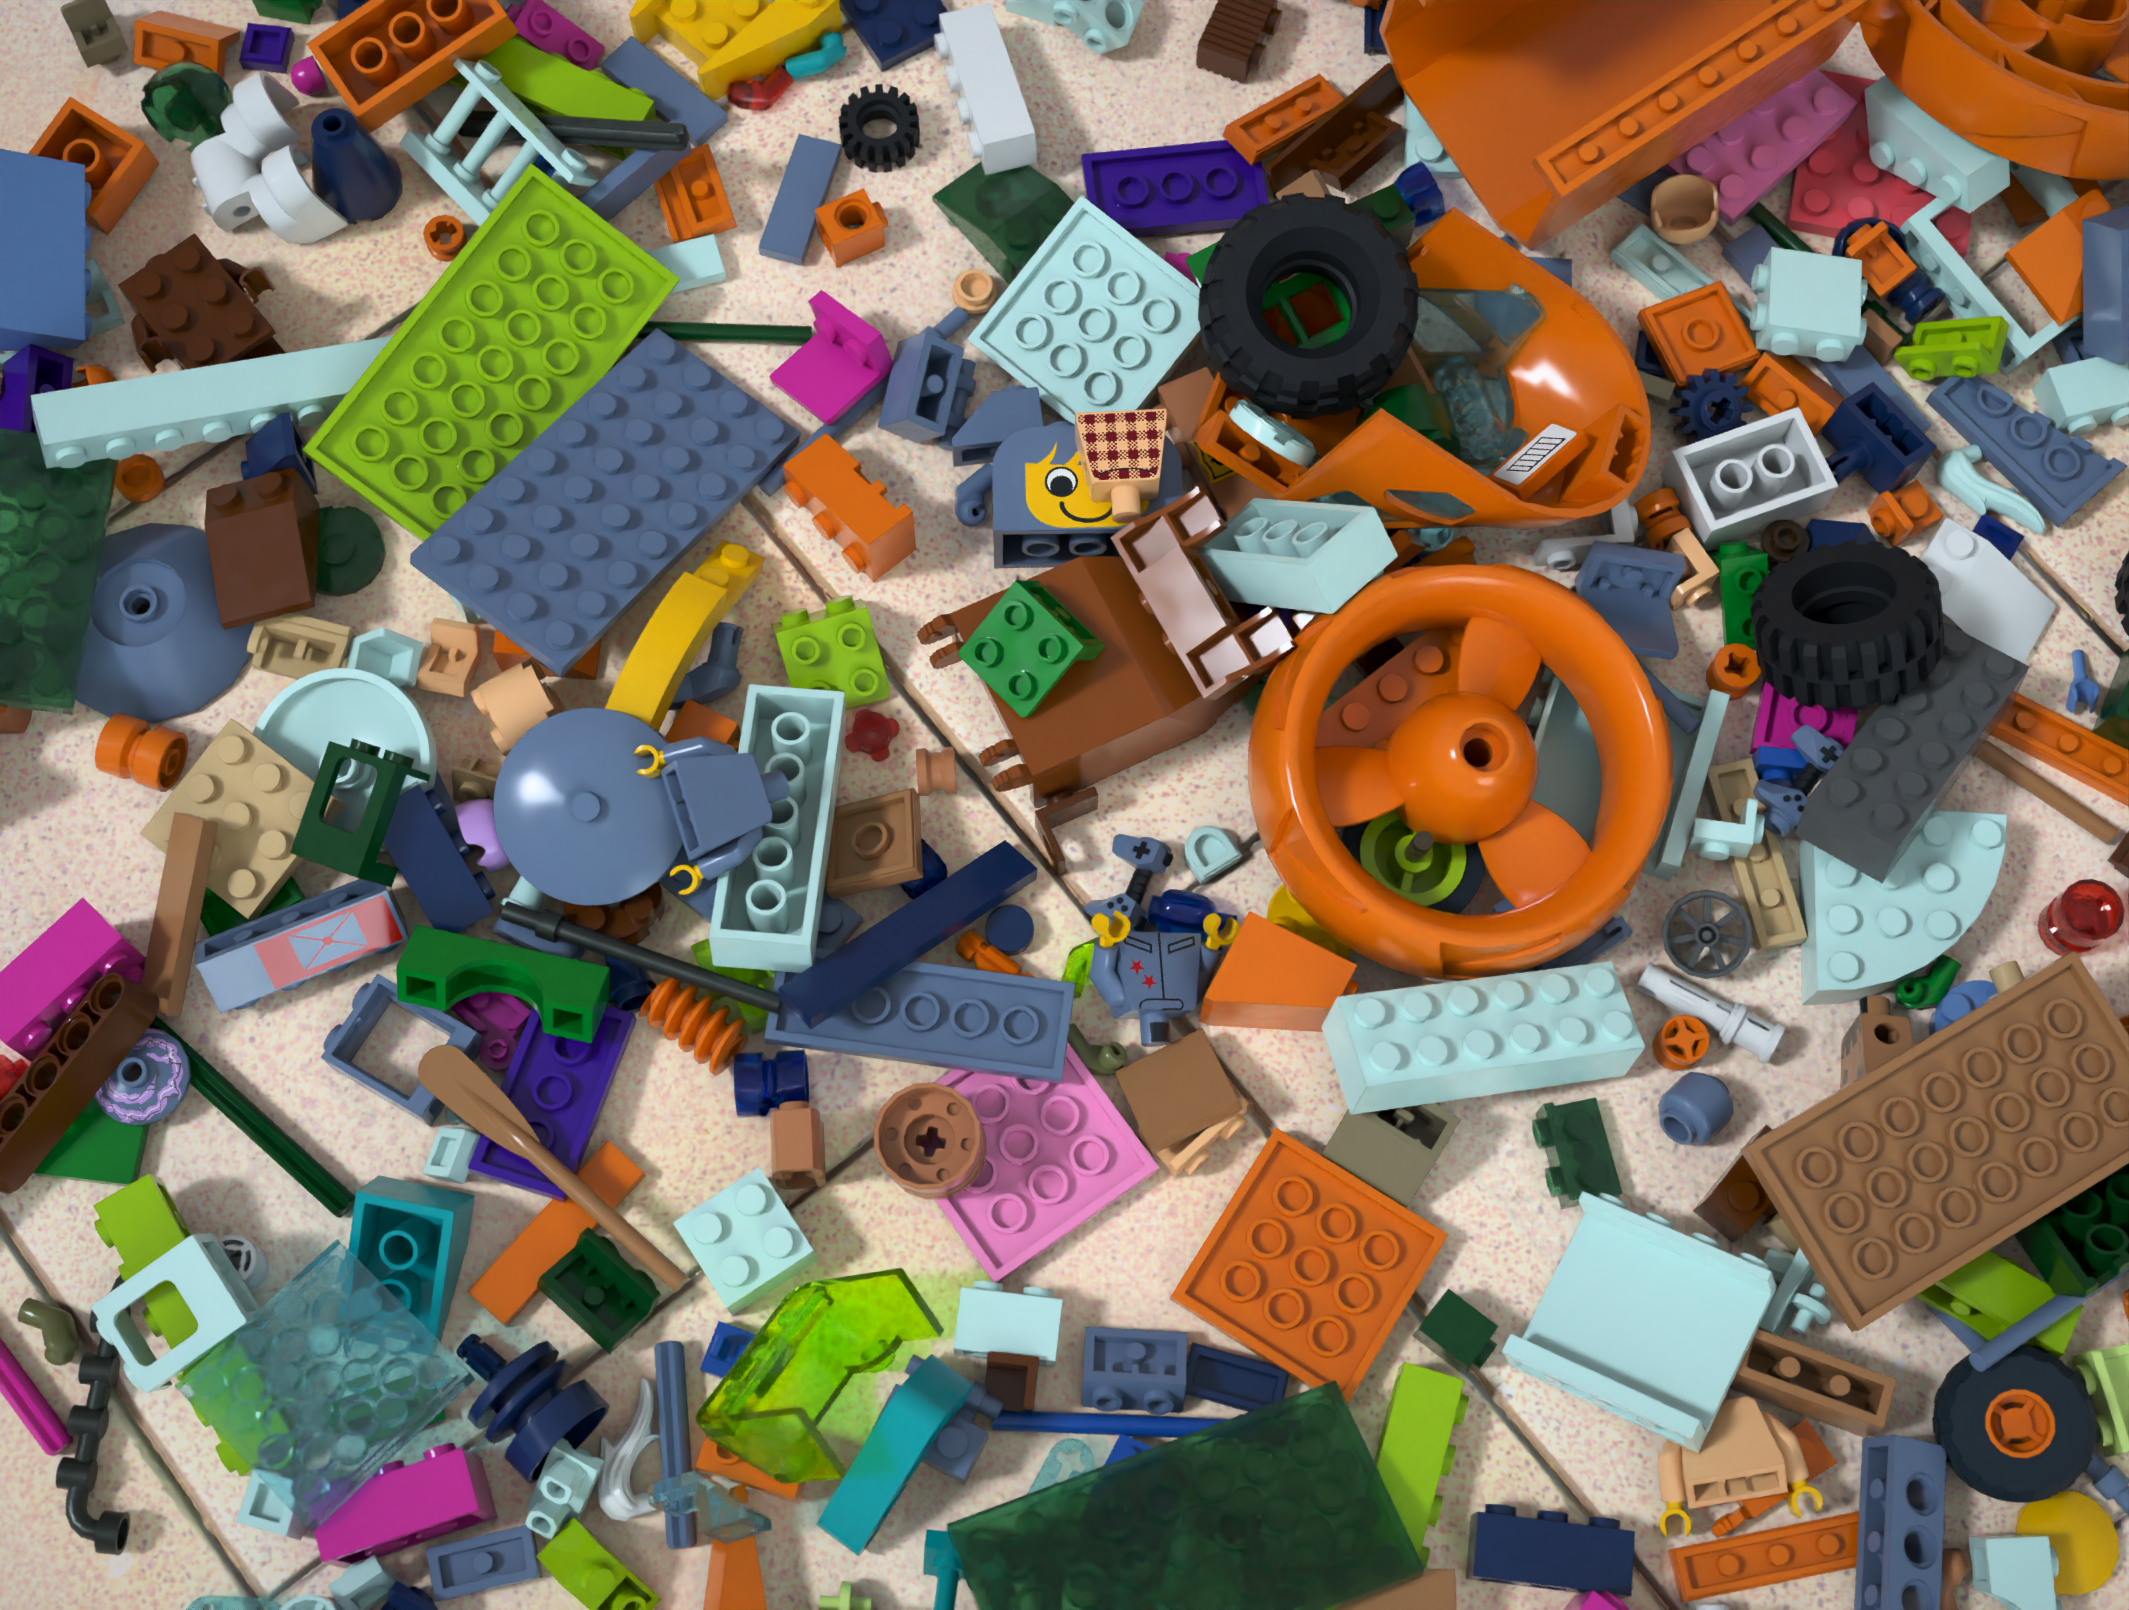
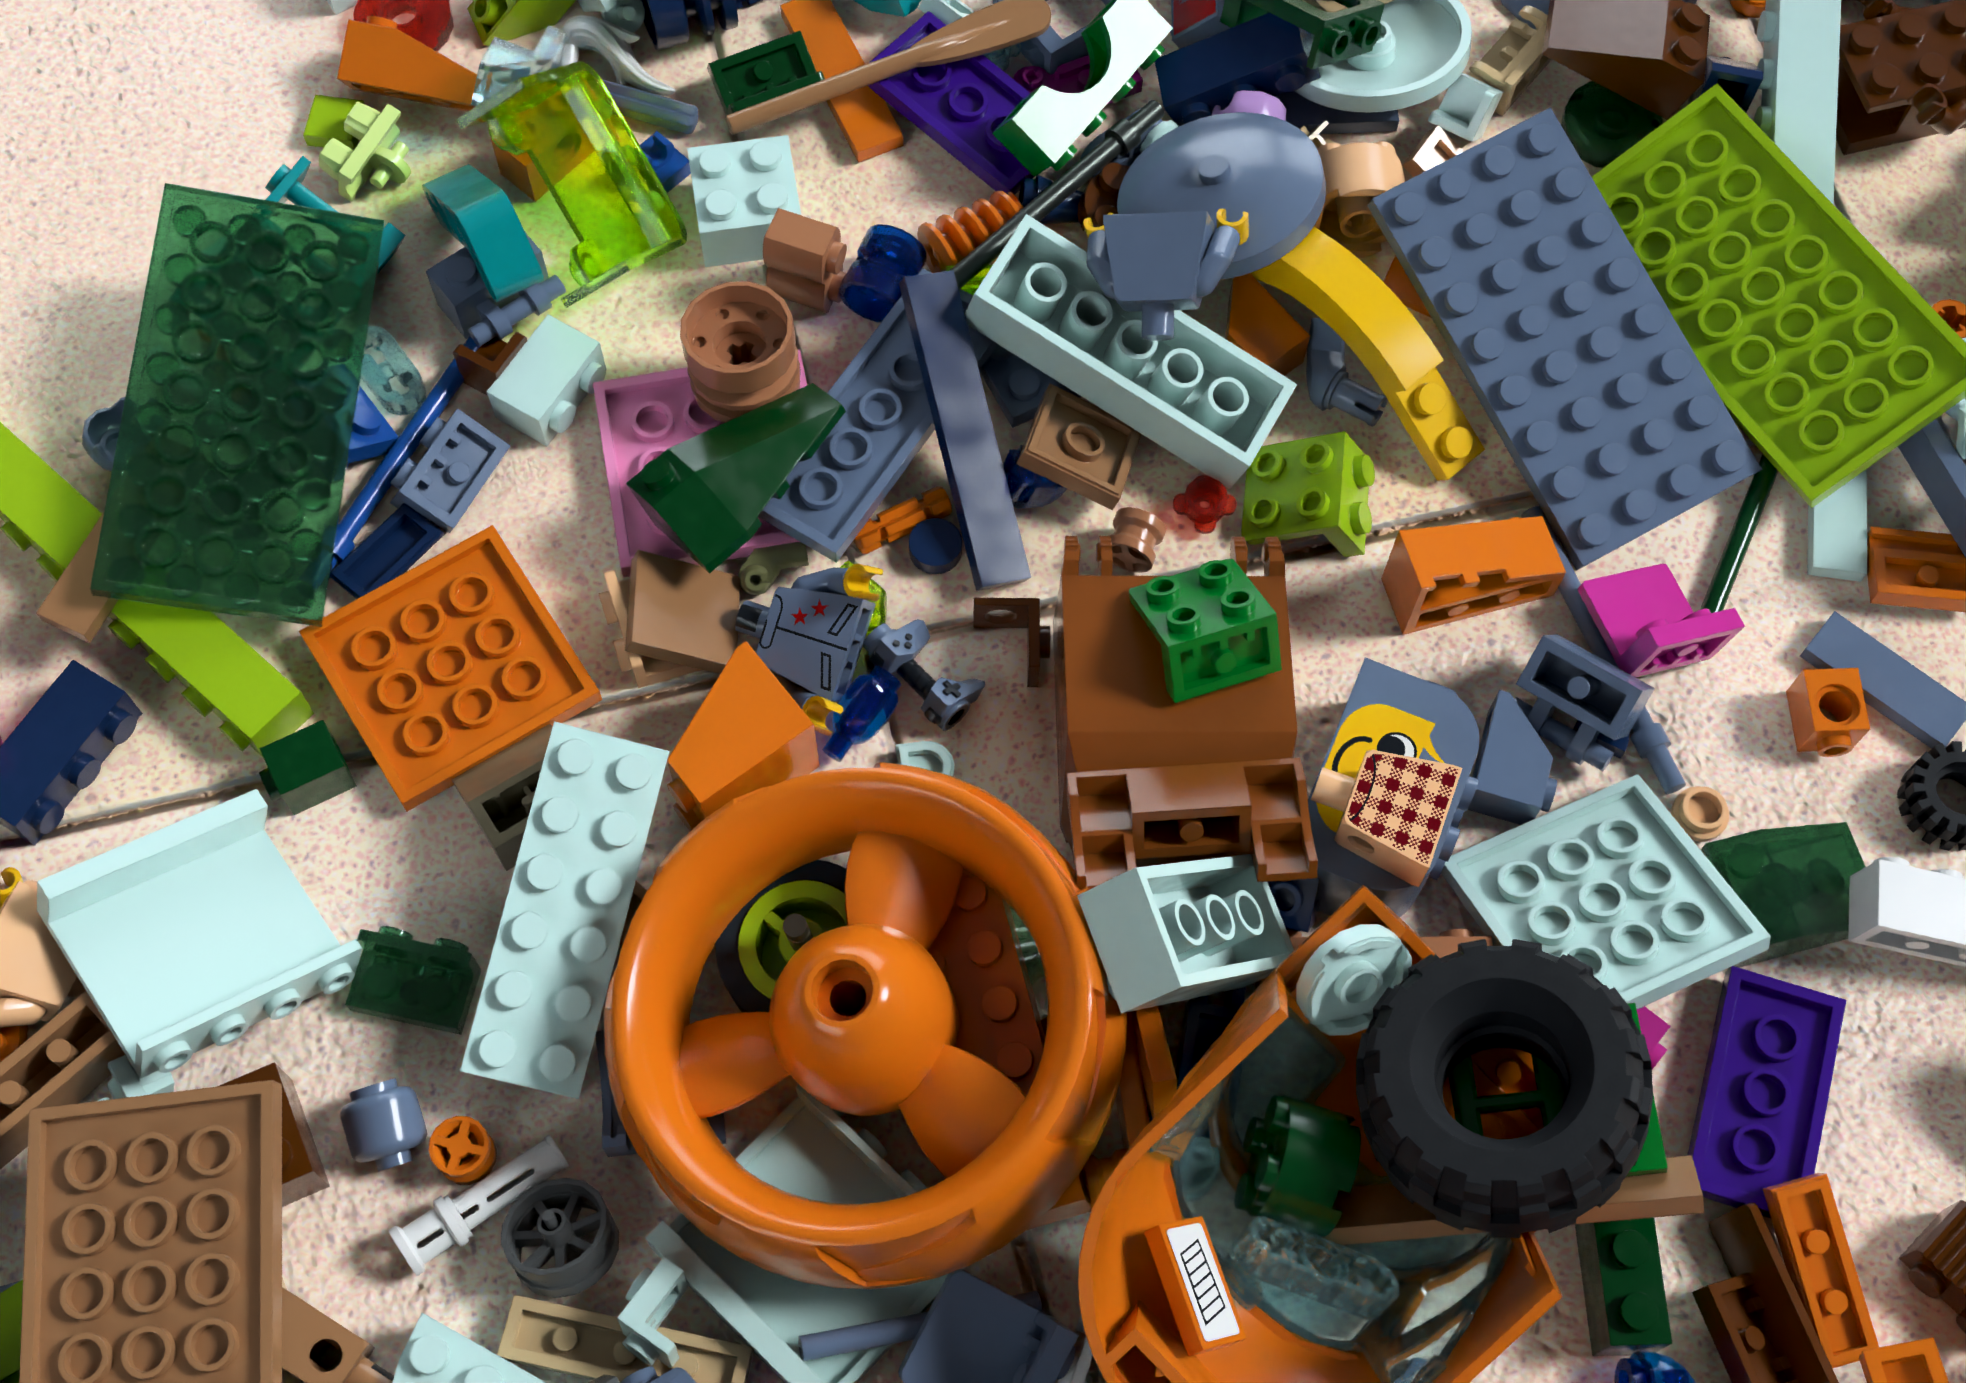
camera: 115 degrees right, 5 degrees down
(1050, 1092) = (719, 482): none -> dark green wedge

